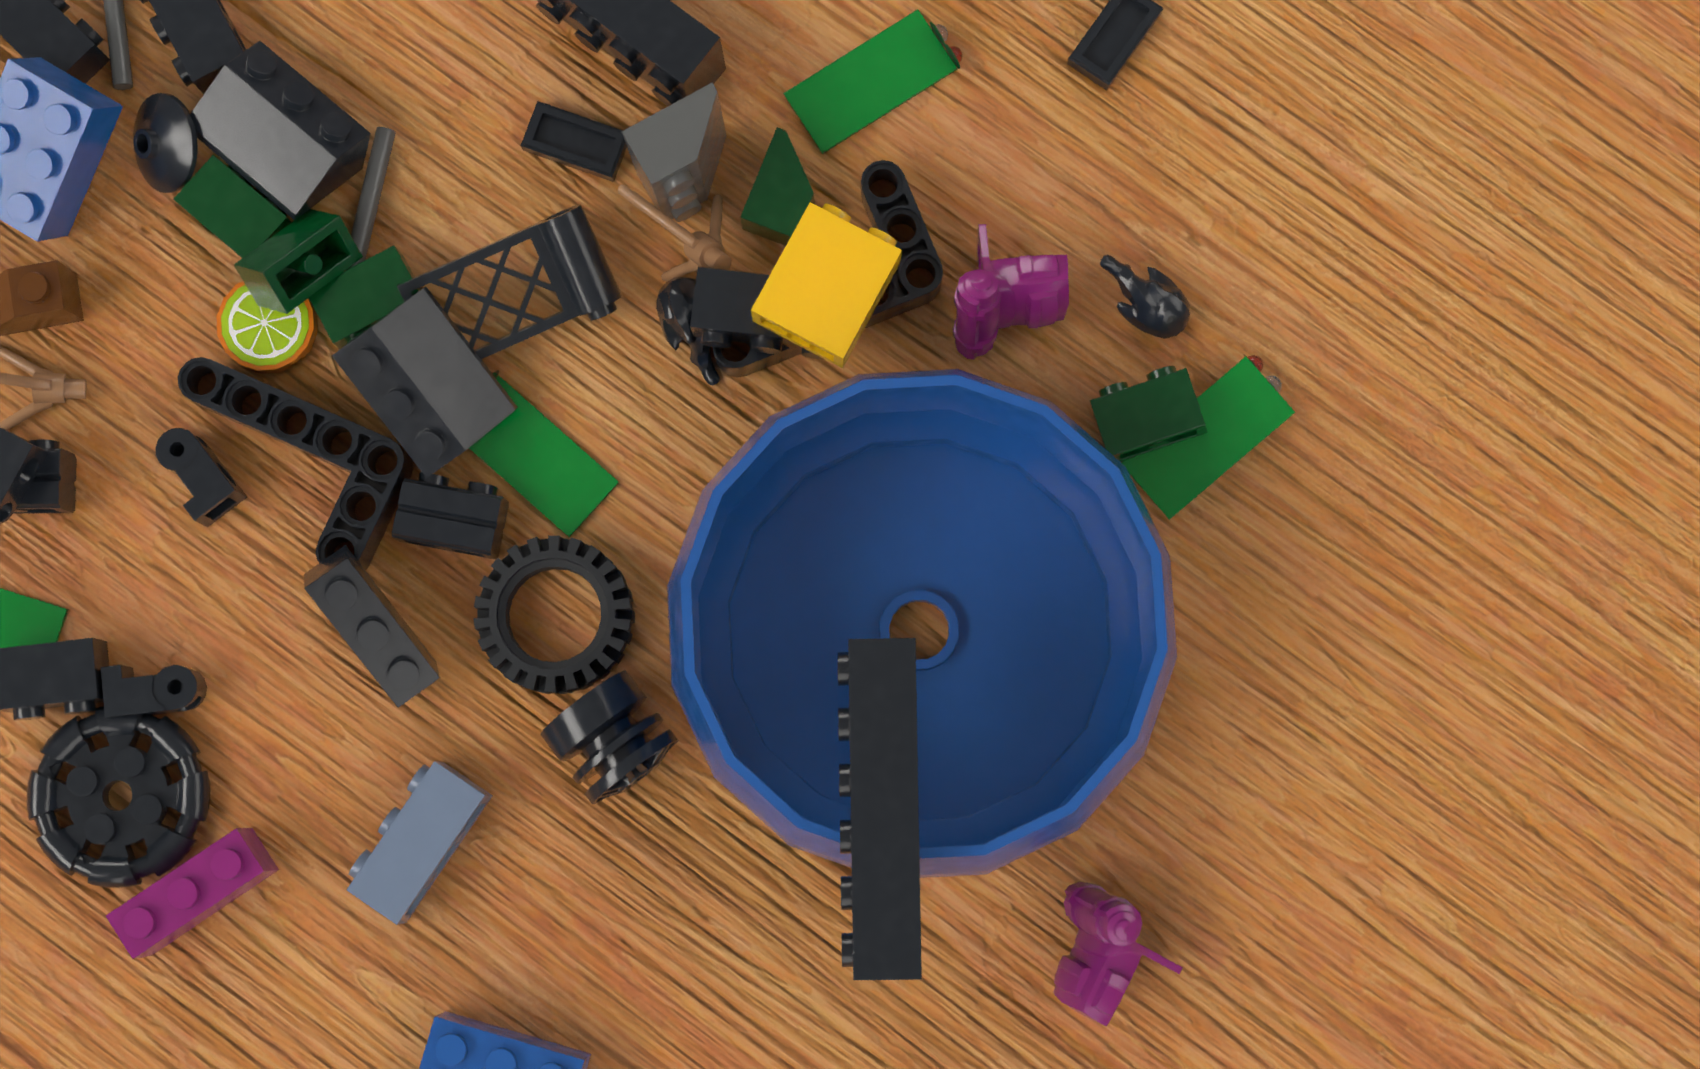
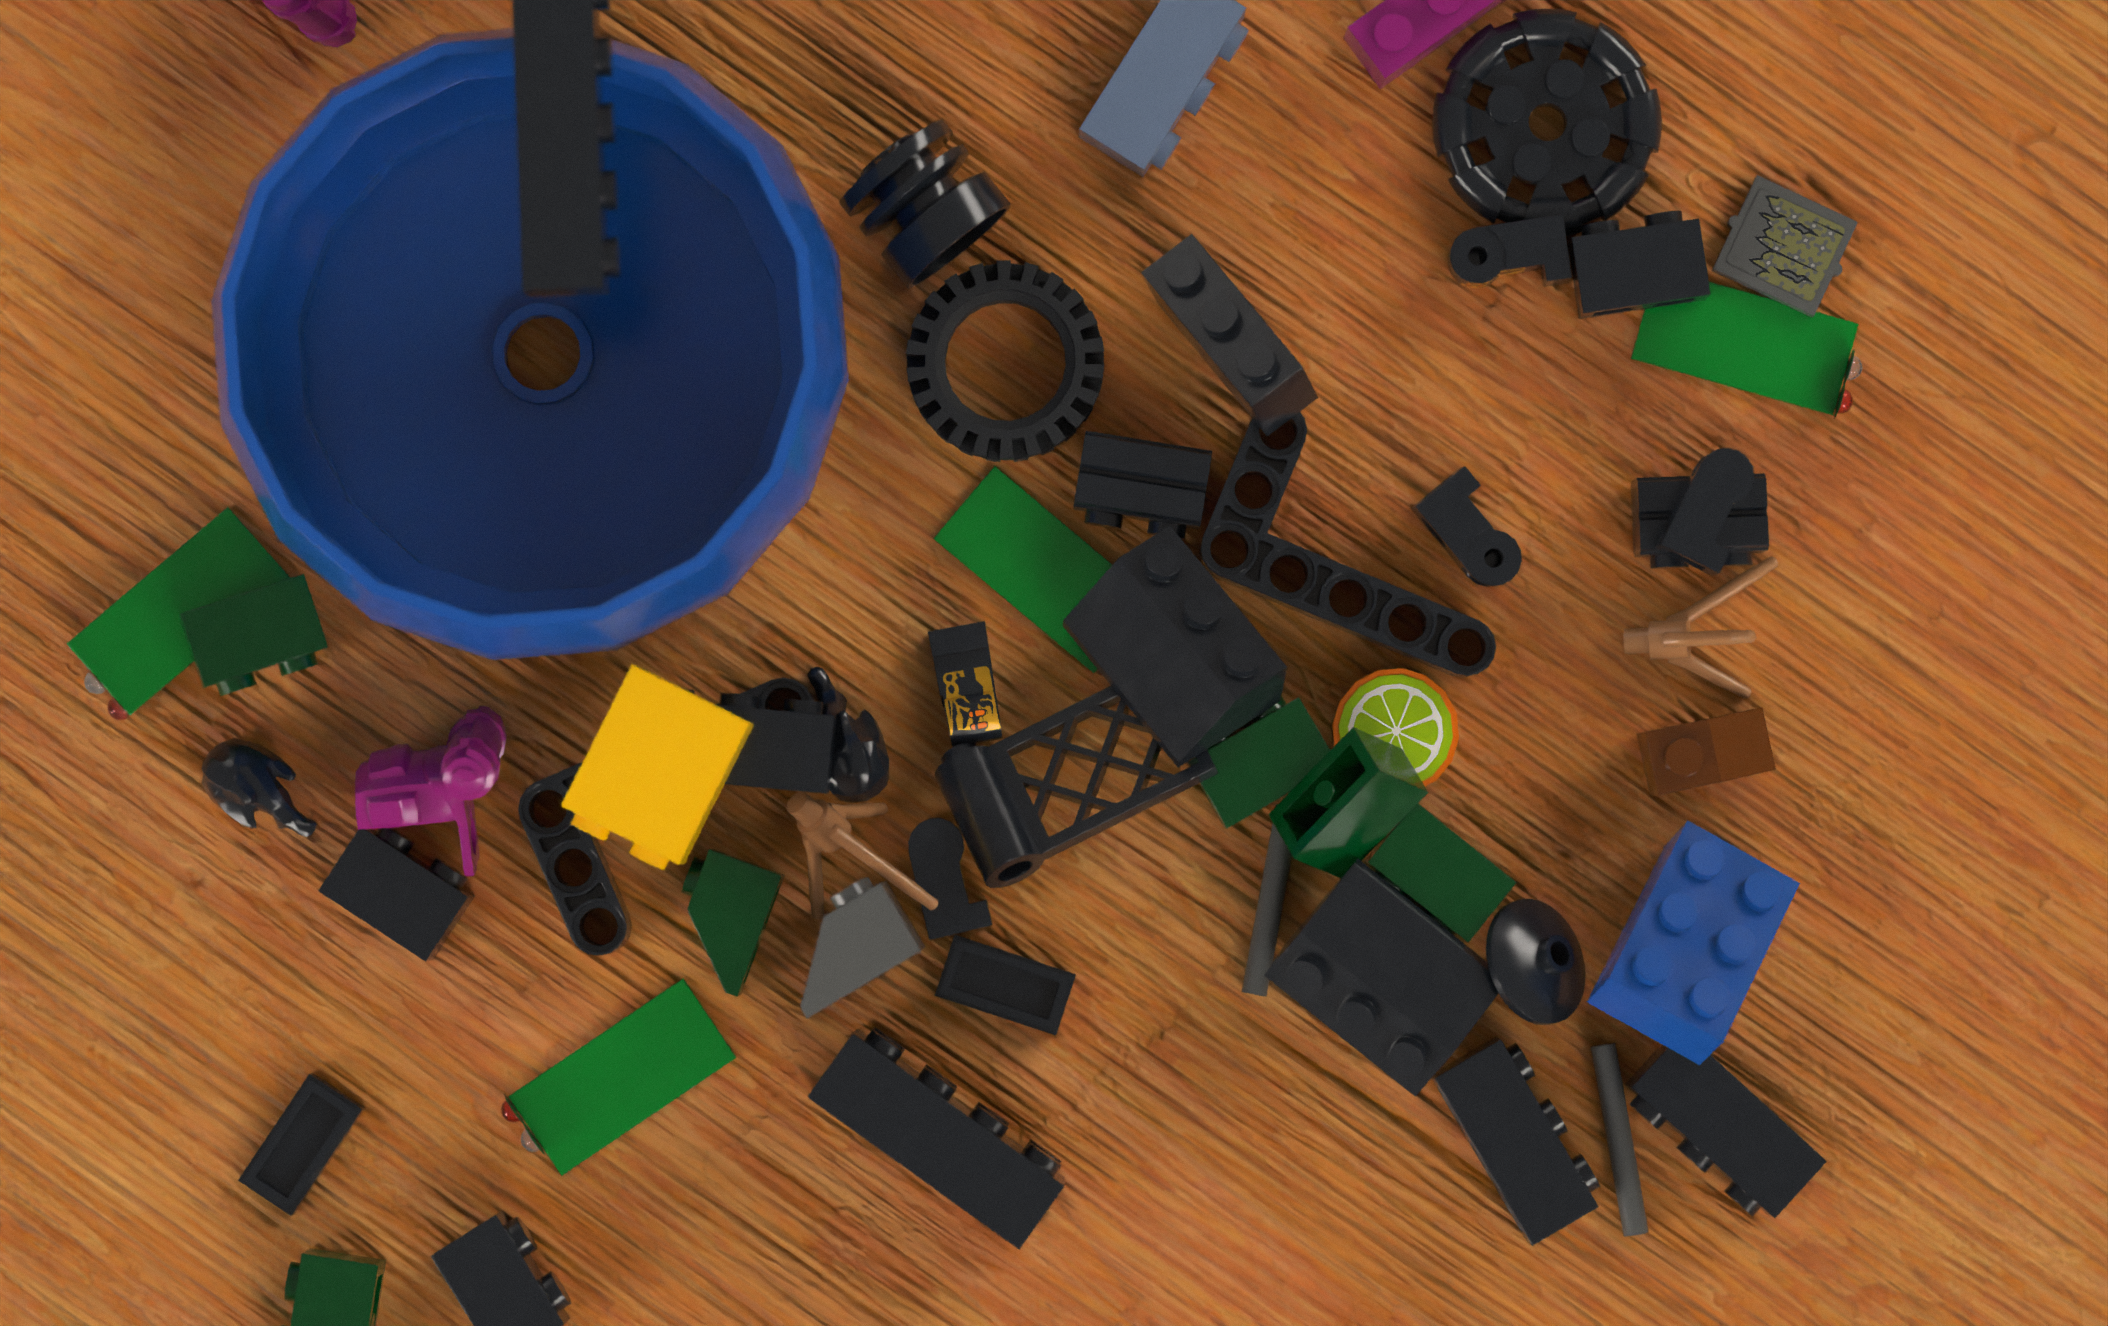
camera: 175 degrees right, 5 degrees up
(595, 368) = (966, 683): none -> black leg
(622, 228) = (935, 857): none -> black leg
(1037, 214) = (398, 891): none -> black brick

